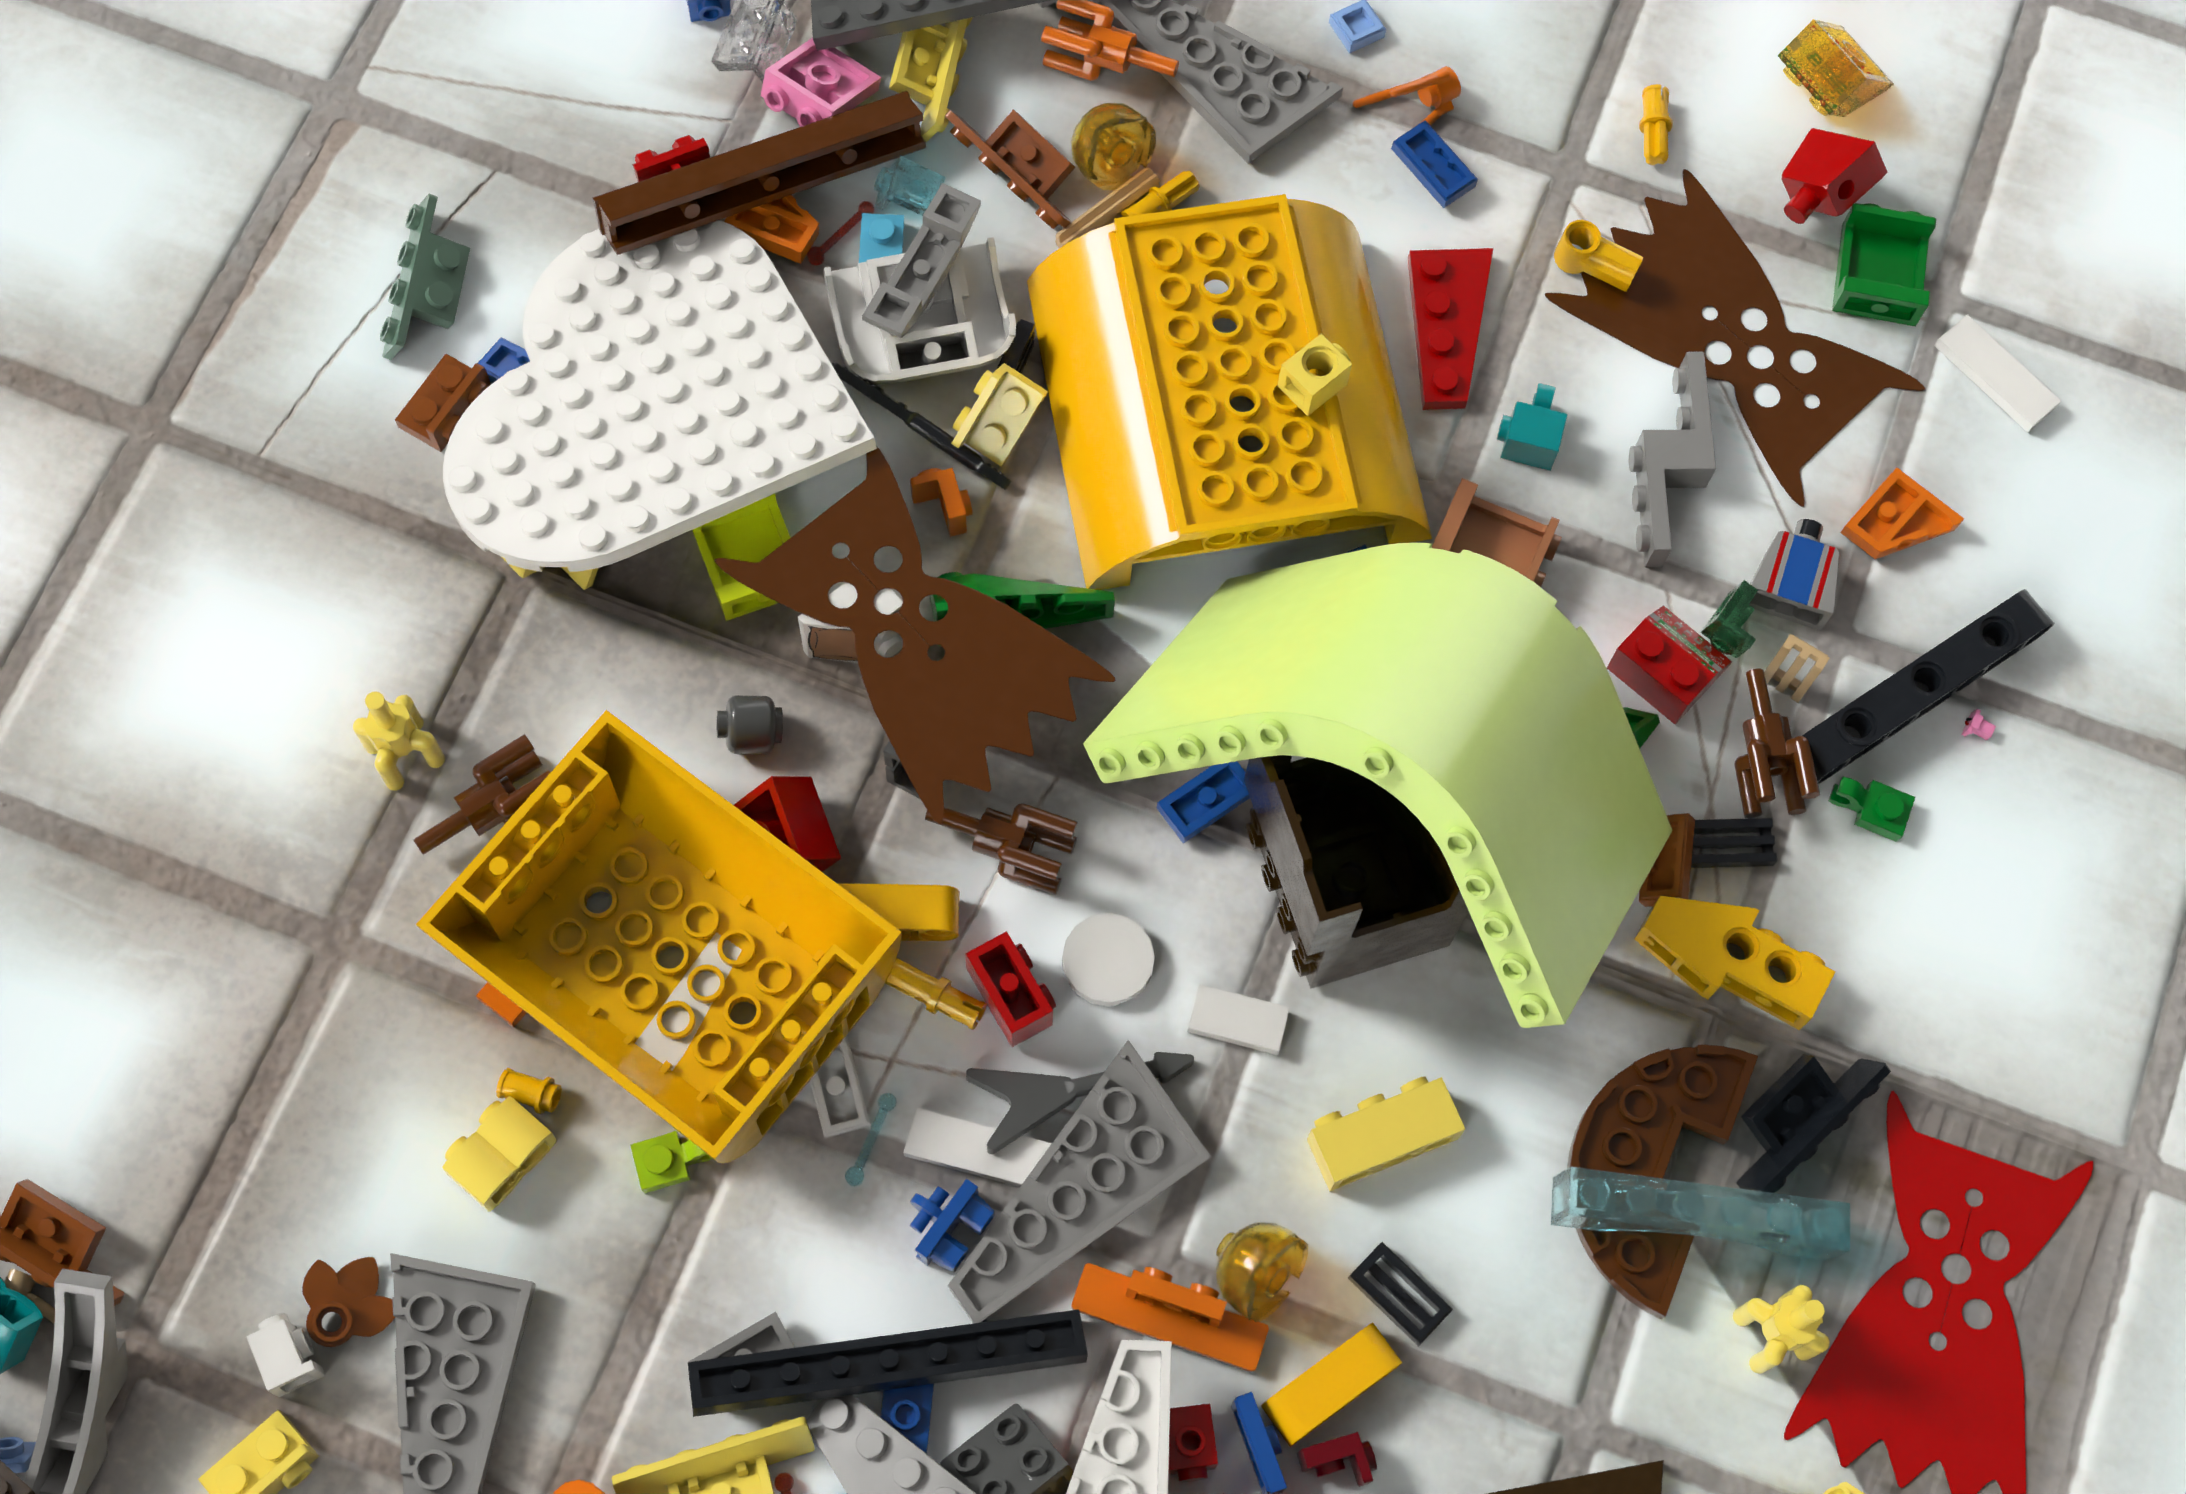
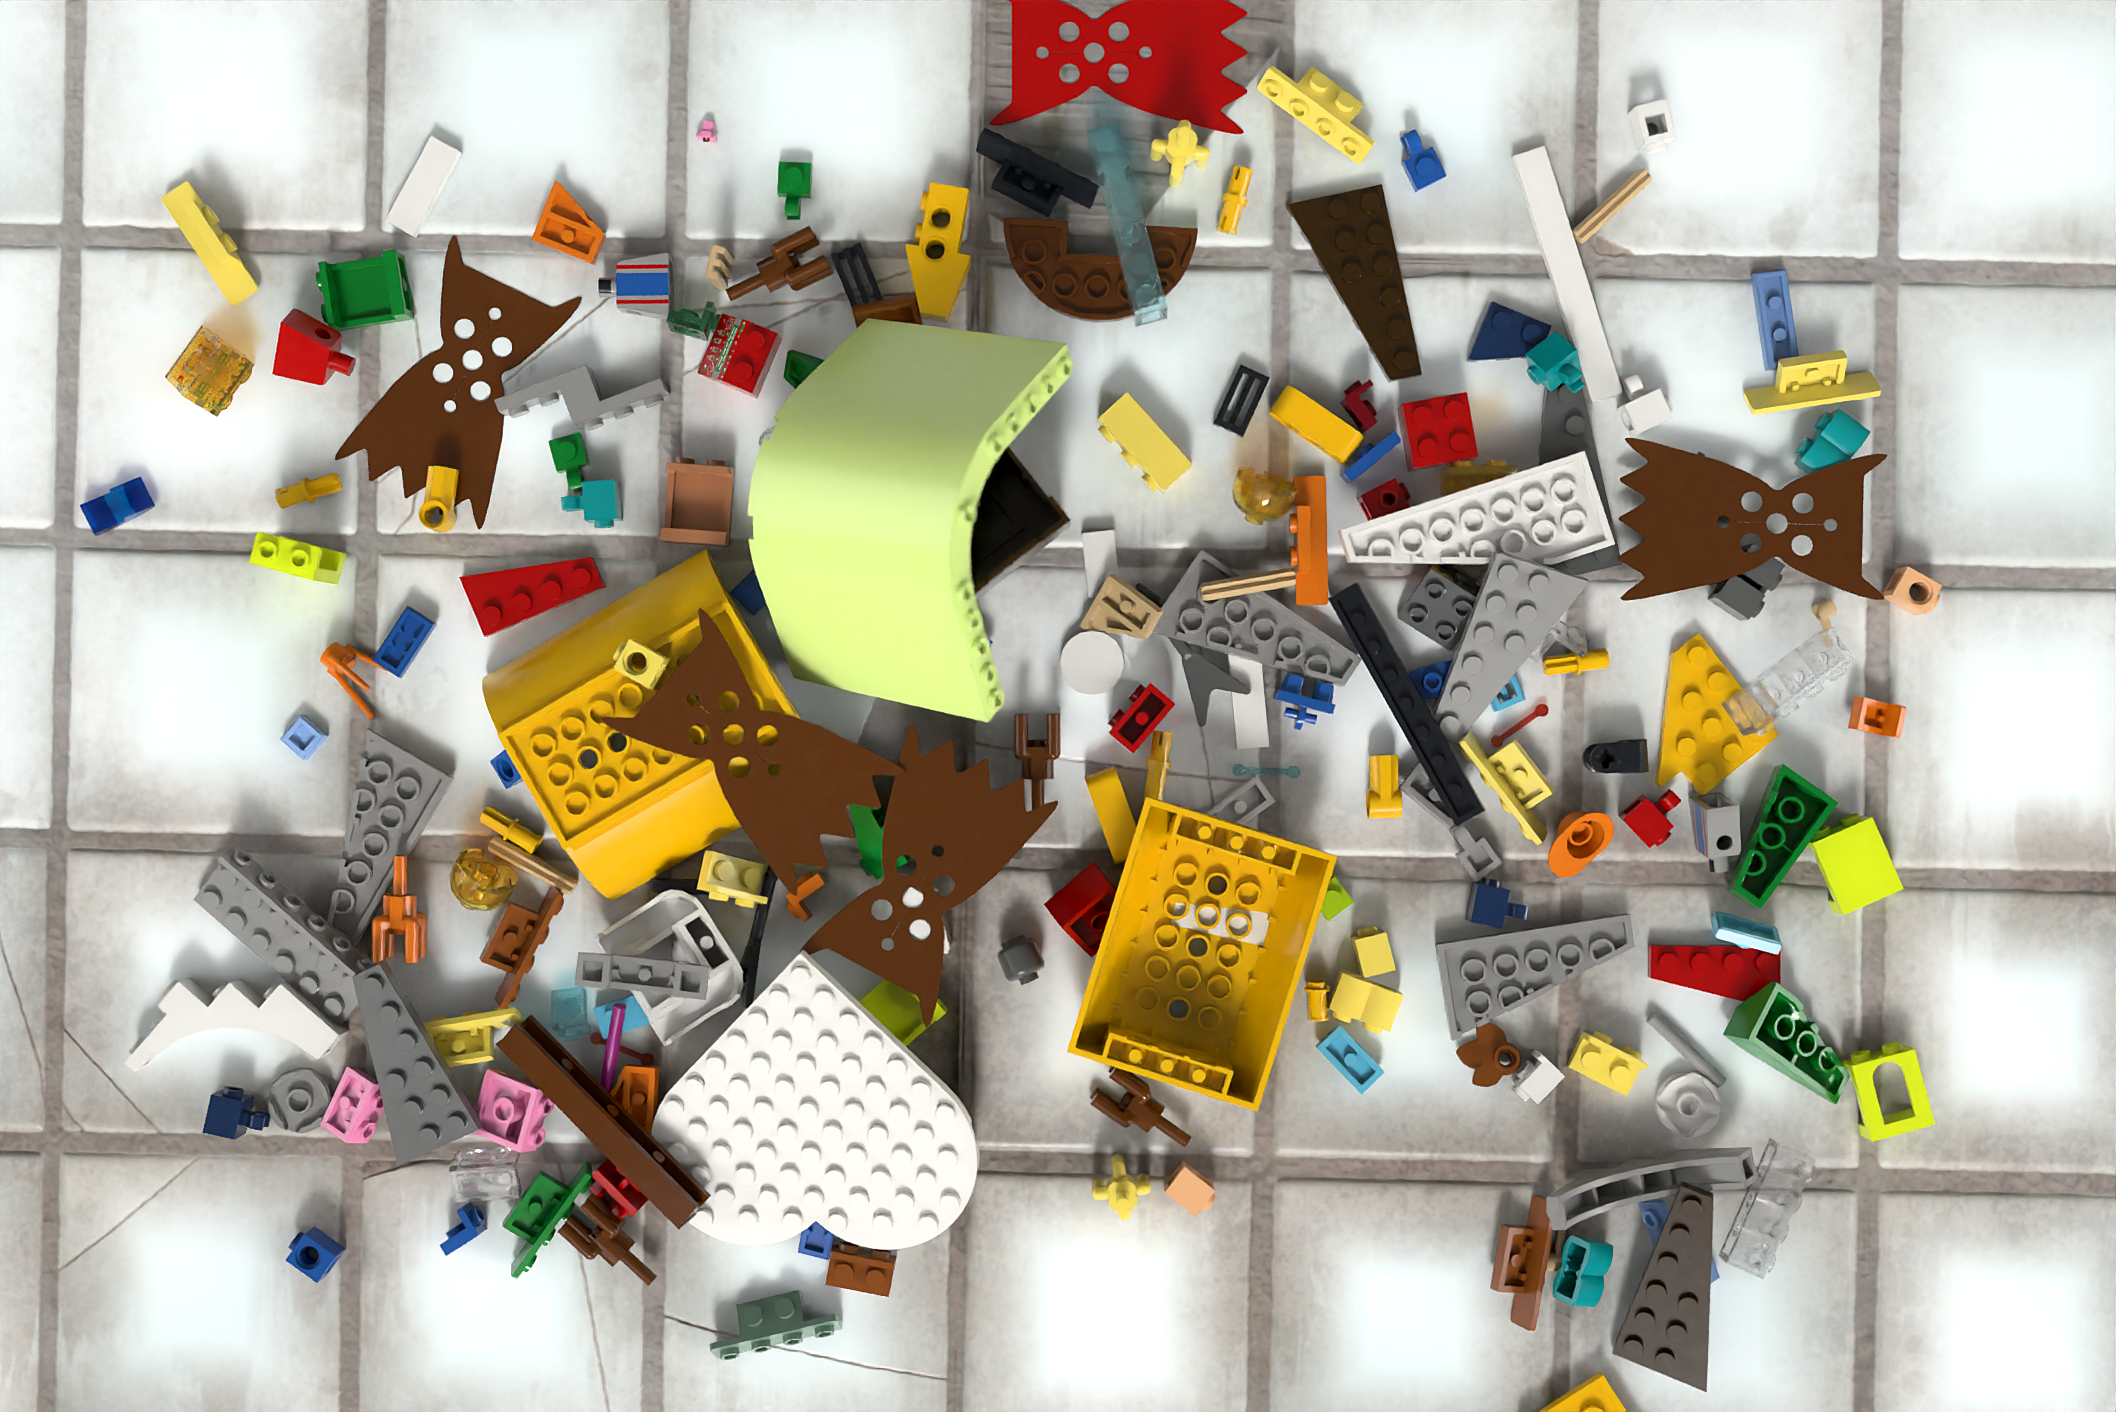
camera: 105 degrees left, 20 degrees up
(353, 830) = (1190, 1189): none -> light nougat brick
(429, 1105) = (1349, 1059): none -> medium azure plate
(556, 1380) = (1490, 904): none -> dark blue brick
(561, 1188) = (1372, 952): none -> light yellow brick
(618, 132) = (606, 1238): none -> reddish brown plant
(633, 1386) = (1476, 854): none -> light grey plate
(687, 73) = (540, 1210): none -> green bracket
(772, 1286) = (1383, 795): none -> yellow piece
(847, 216) = (612, 1046): none -> magenta bar
(1102, 543) = (777, 812): none -> reddish brown piece
(1140, 1199) = (1247, 584): none -> tan axle
(1165, 1016) = (1122, 610): none -> tan wing
(1574, 77) = (297, 558): none -> neon yellow panel
(1602, 421) = (569, 456): none -> green plate
(1691, 1386) = (1234, 200): none -> yellow pin
(1942, 669) = (677, 164): black beam -> none
(1991, 122) = (210, 243): none -> light yellow bracket

